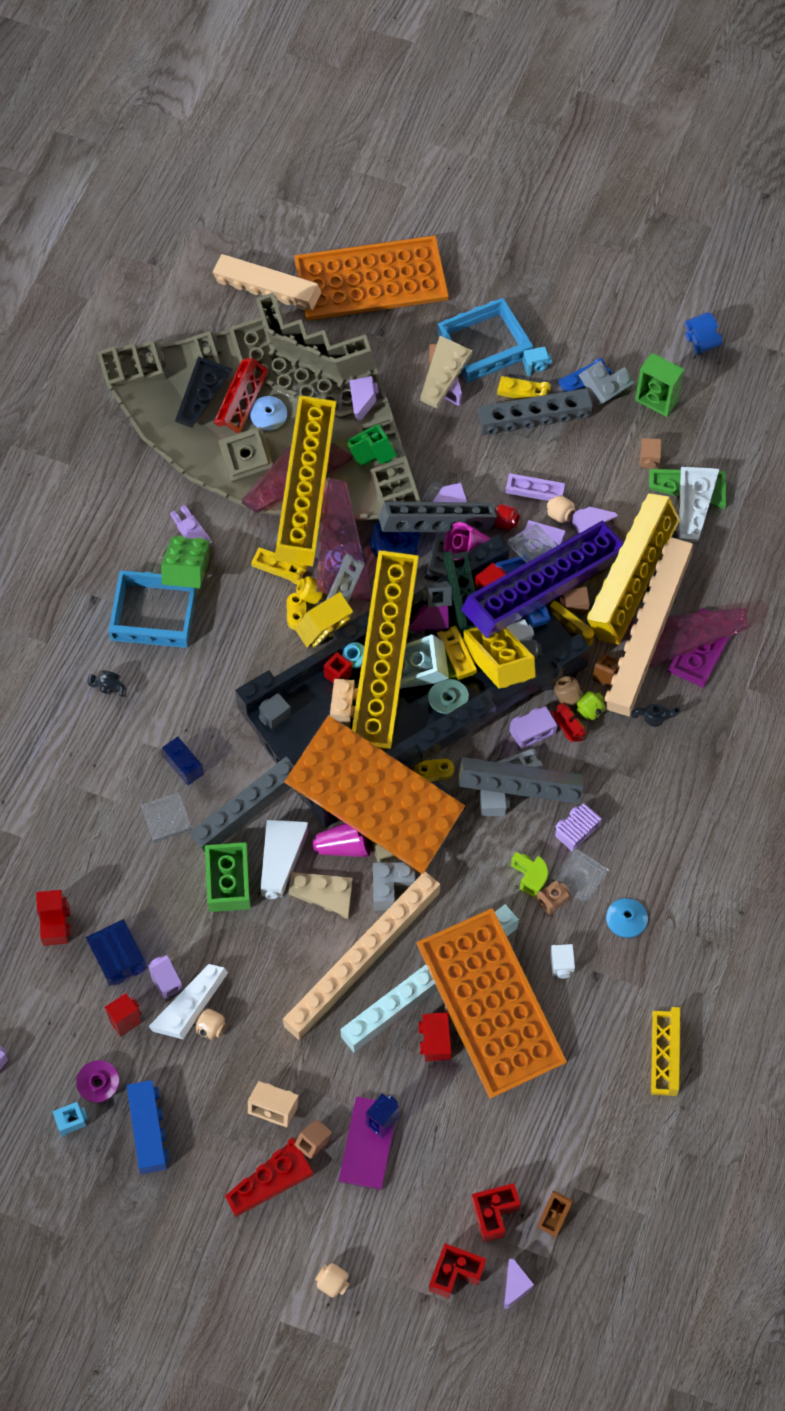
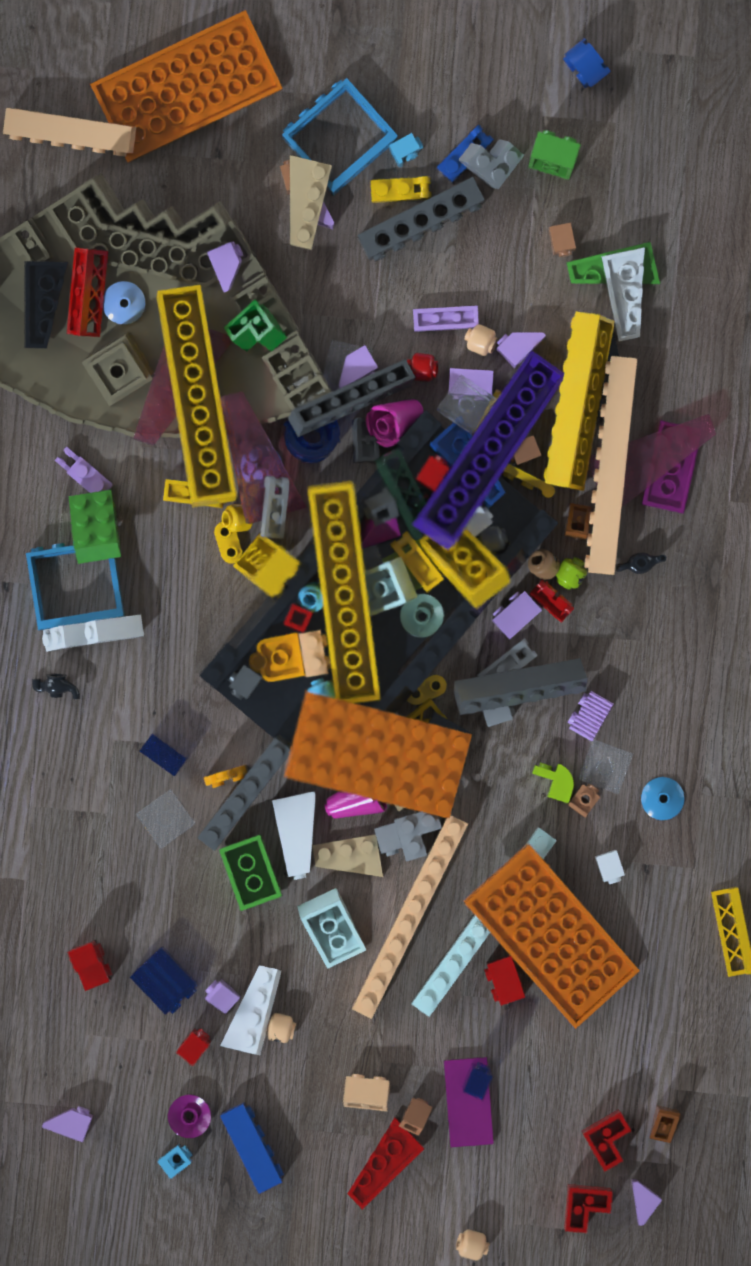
camera: 10 degrees left, 25 degrees up
(160, 644) = (93, 632): none -> white arch
(228, 786) = (218, 779): none -> light orange plate
(286, 948) = (331, 928): none -> light aqua slope
(310, 700) = (278, 658): none -> light orange plate
(362, 883) = (388, 839): none -> light grey brick

